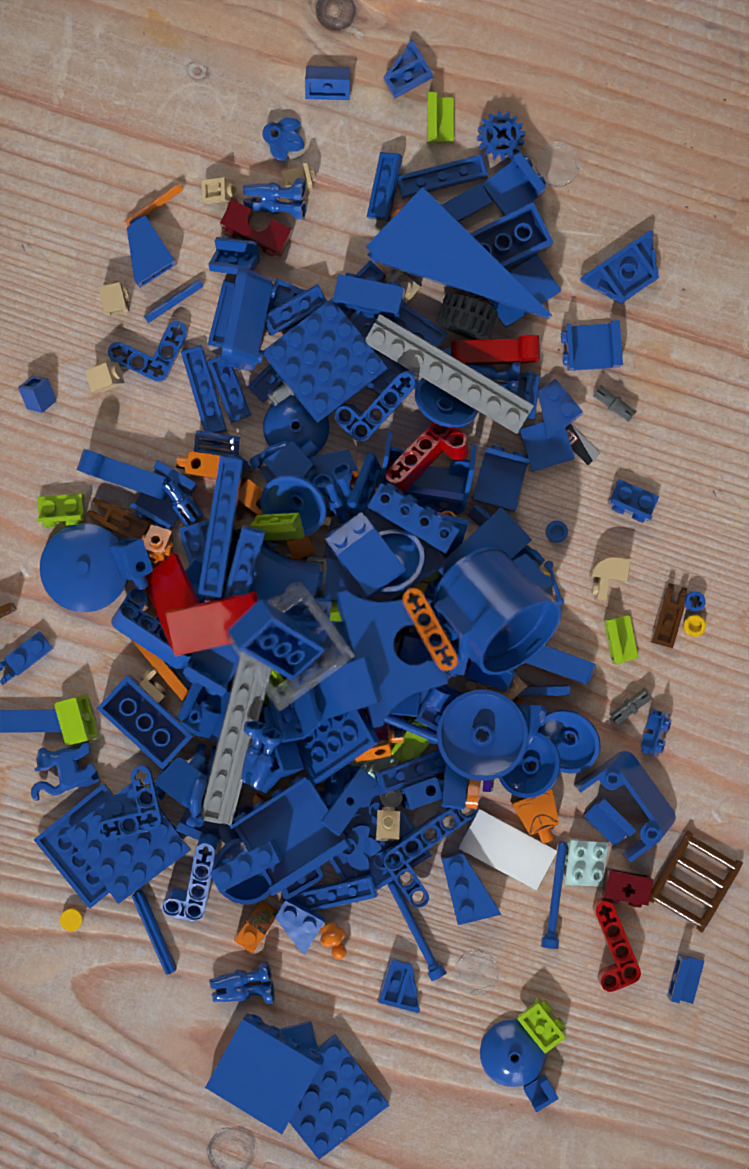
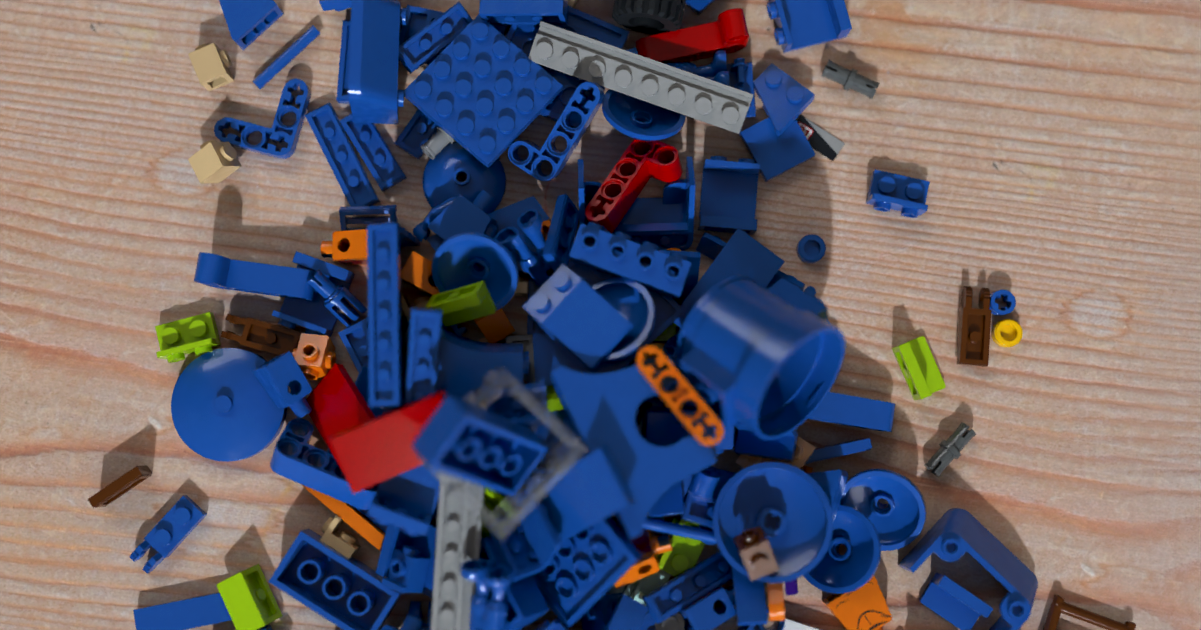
camera: 15 degrees left, 5 degrees down
(37, 393) = (135, 199): blue panel -> none
(464, 755) = (755, 553): none -> reddish brown bracket
(606, 570) = (887, 282): tan brick -> none
(655, 742) = (989, 488): blue hinge -> none

